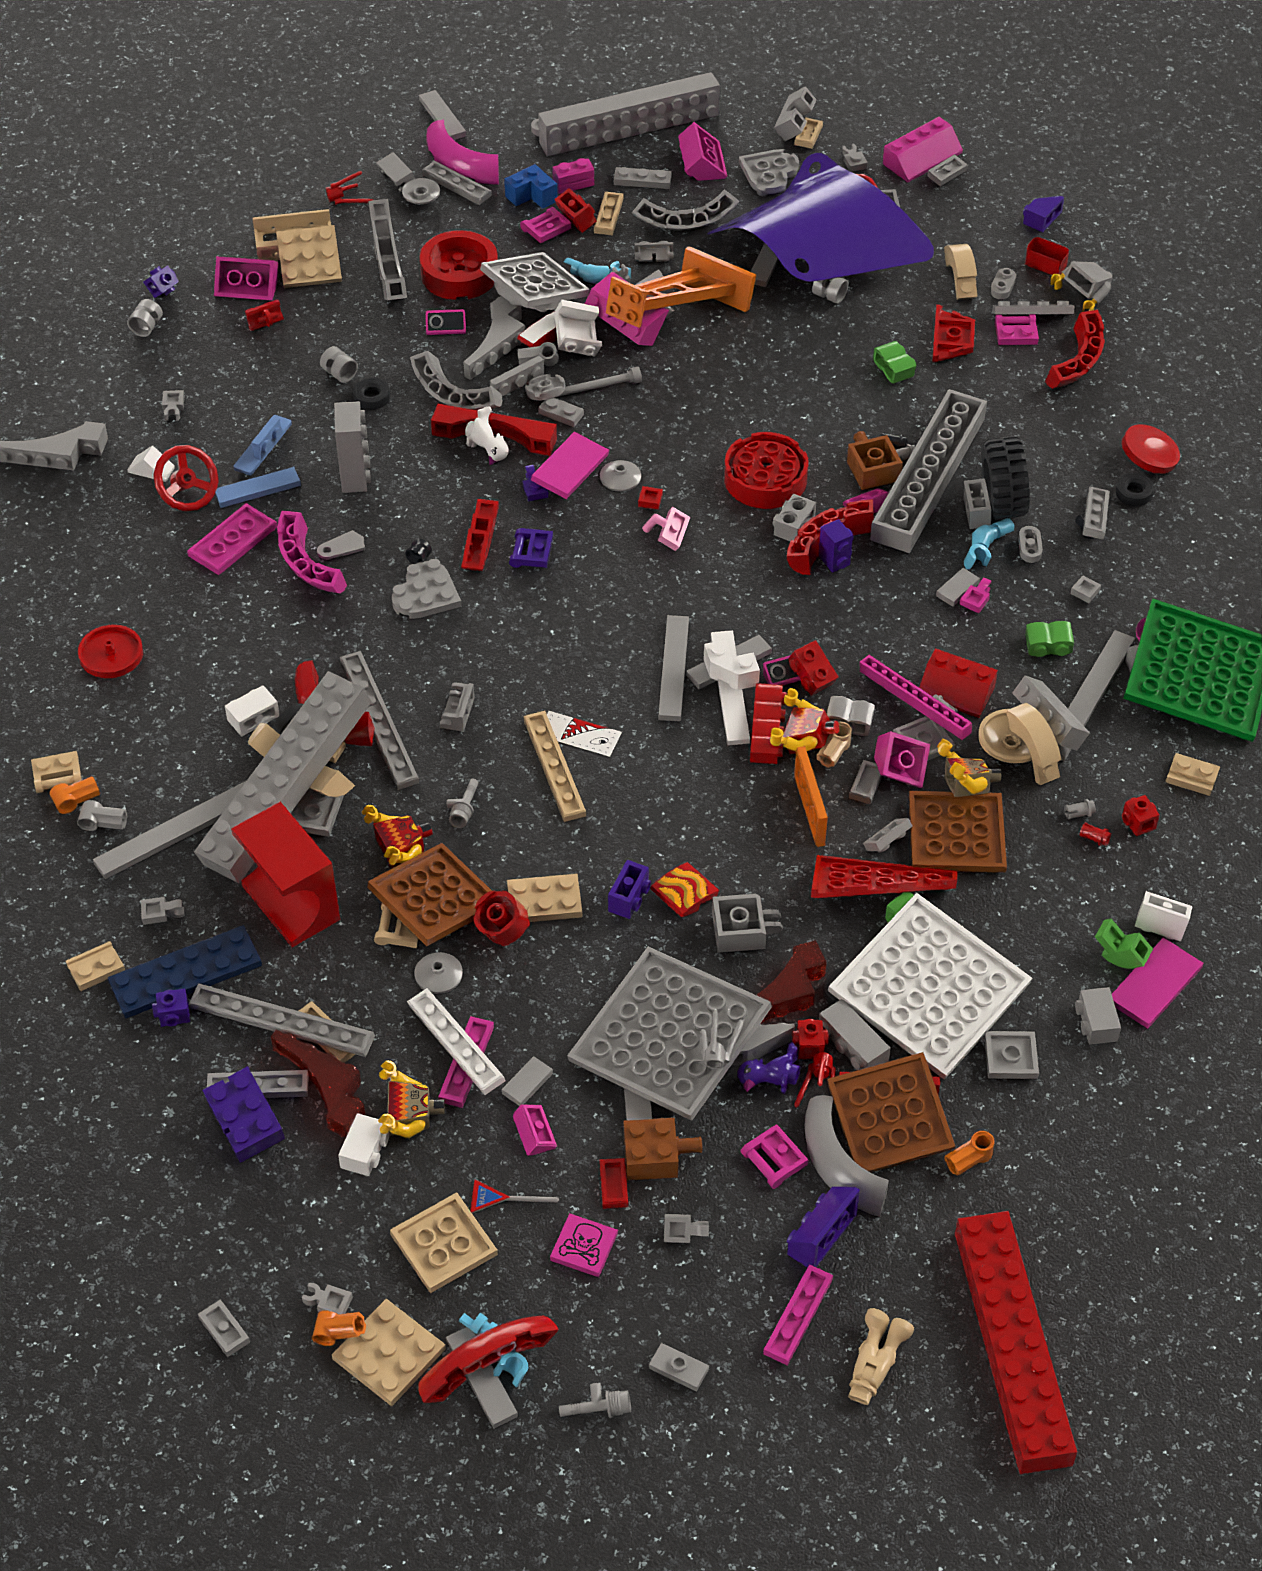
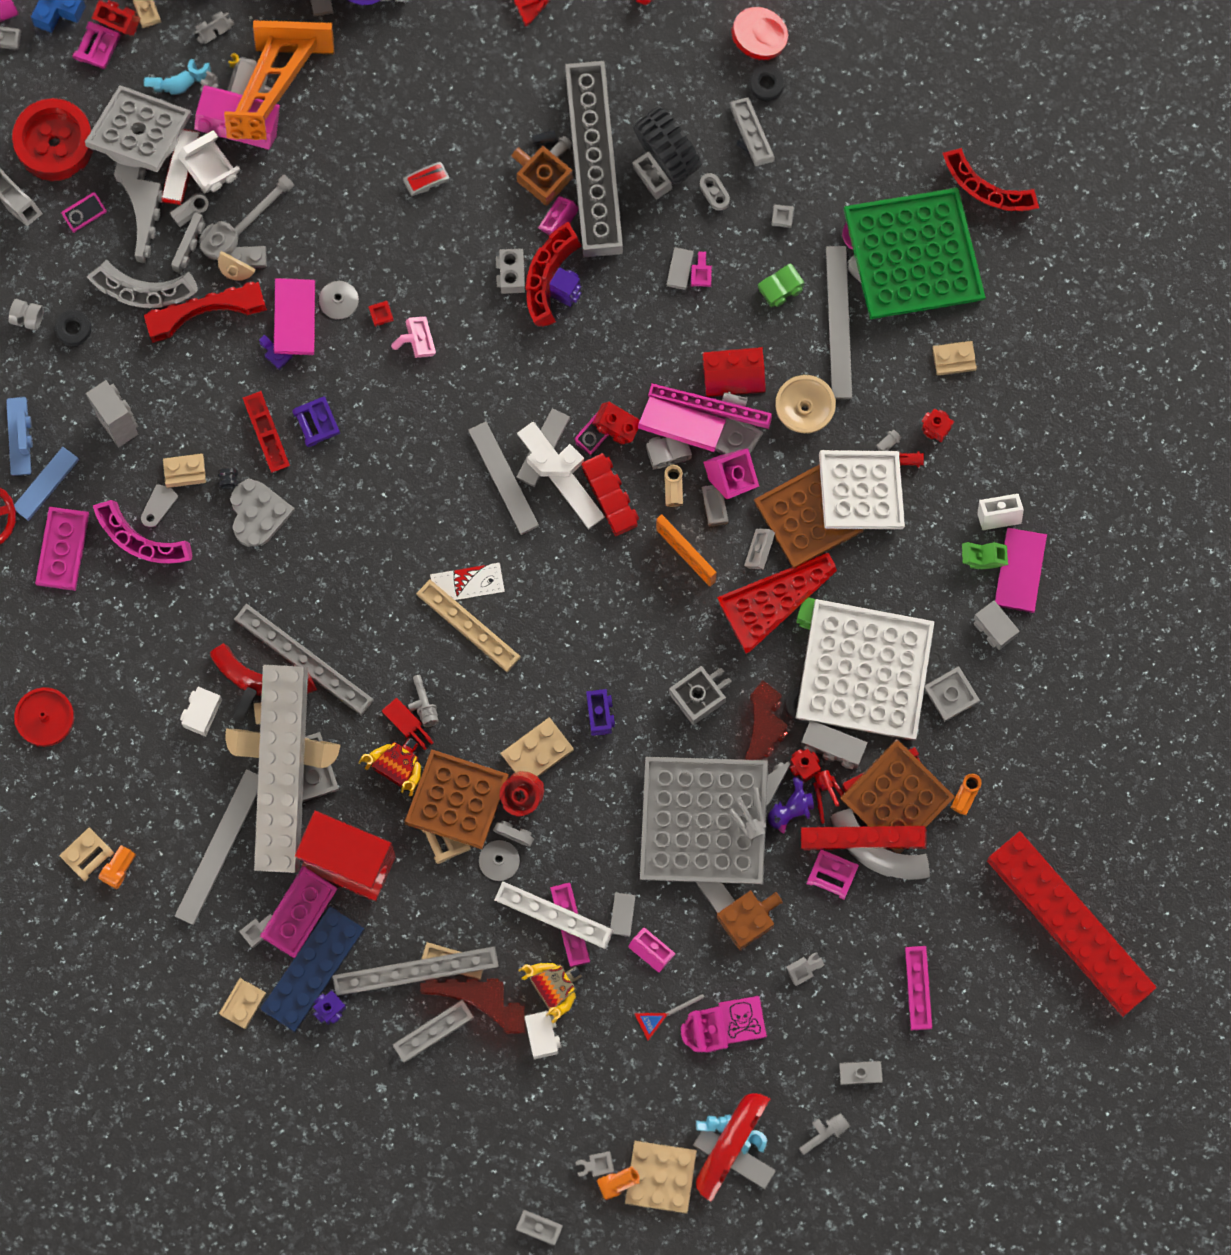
camera: 30 degrees left, 25 degrees up
(95, 815) = (148, 877): light grey piece -> none
(209, 912) = (298, 912): none -> dark pink tile
(245, 1112) = (444, 1064): dark purple piece -> none
(385, 530) = (184, 470): none -> tan plate
(435, 810) = (405, 721): none -> red arm
(443, 1242) = (646, 1076): tan plate -> none
(458, 707) = (359, 615): light grey hinge -> none
(464, 947) = (506, 830): none -> light grey plate
(481, 434) = (201, 326): white animal -> none
(536, 1231) = (705, 1030): none -> dark pink slope
(542, 408) = (233, 268): none -> tan plate
(613, 1183) = (733, 959): red tile -> none
(684, 889) = (637, 685): slope -> none
(761, 422) = (425, 178): none -> slope
(768, 486) = (455, 251): red brick -> none
(806, 726) = (645, 485): torso -> none
(823, 1225) = (898, 912): dark purple slope -> none
(869, 1147) = (863, 837): none -> red arch
(875, 1363) = (987, 994): tan piece -> none
(876, 696) = (682, 423): none -> tile
(894, 362) = (496, 47): bright green brick -> none
(966, 775) = (789, 460): torso -> none
(982, 538) = (674, 210): medium azure piece -> none
(1025, 831) = (861, 489): none -> white plate
(1039, 739) = (828, 401): tan arch -> none
(1064, 725) = (823, 366): light grey brick -> none

